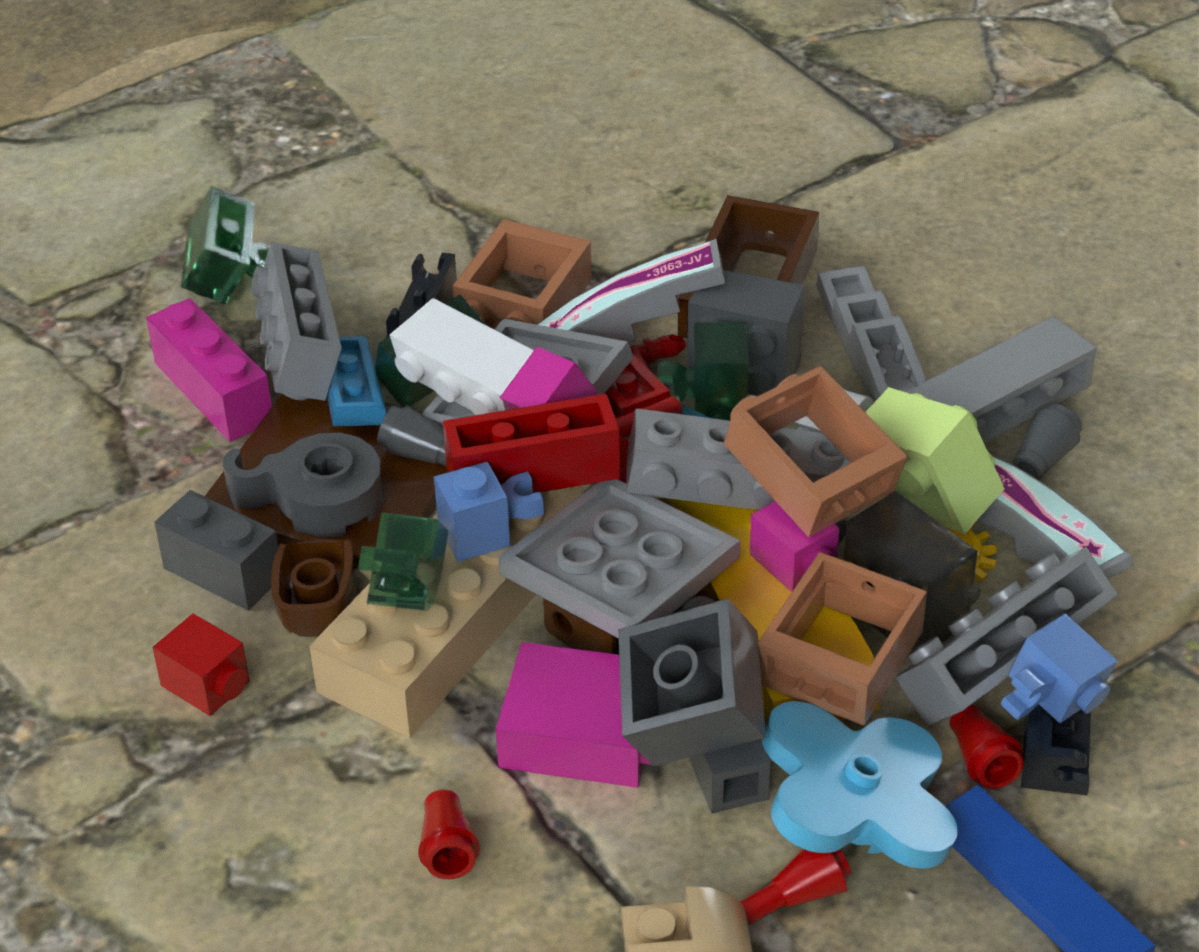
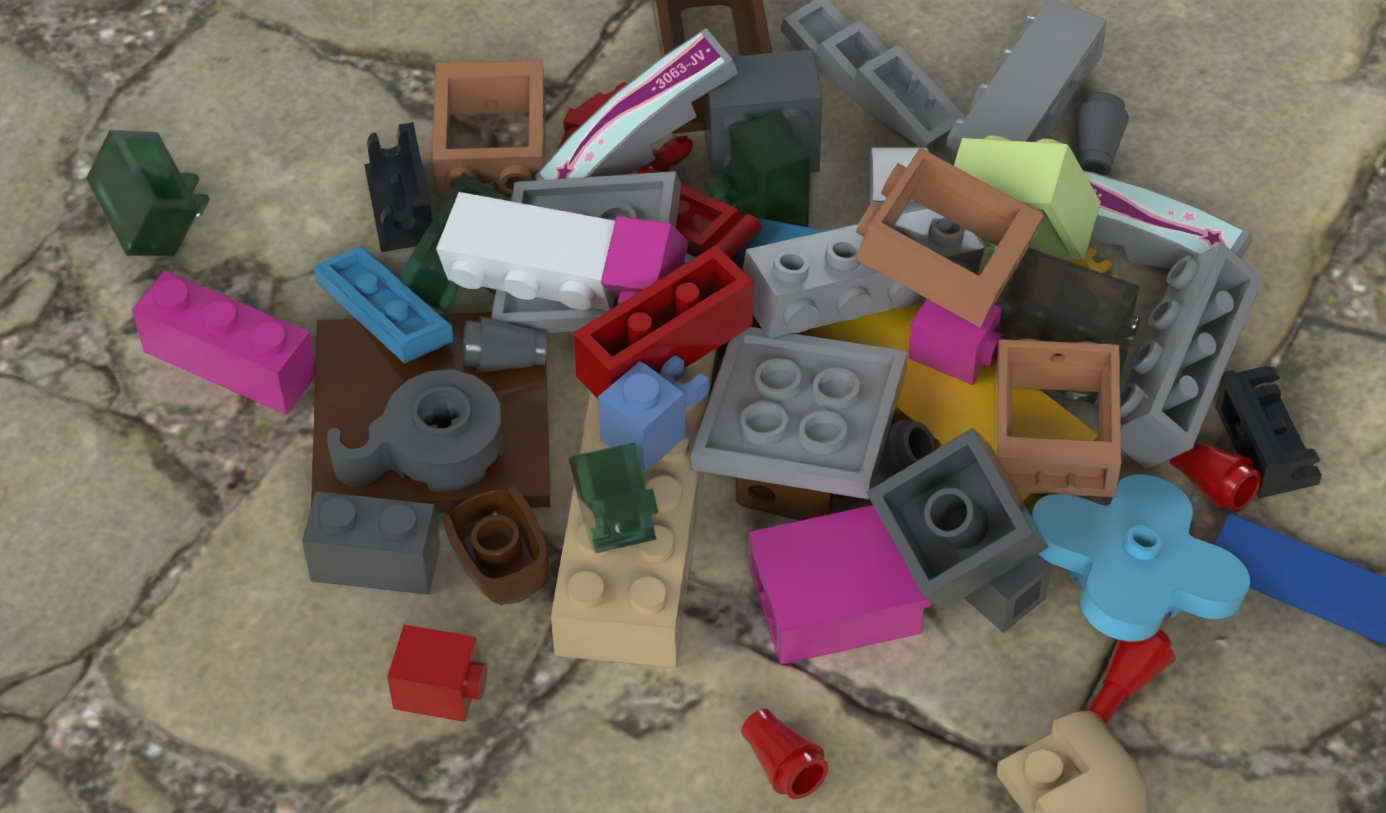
camera: 25 degrees left, 10 degrees up
(296, 322) = (296, 256): light grey brick -> none
(1059, 671) = (1265, 379): medium blue brick -> none

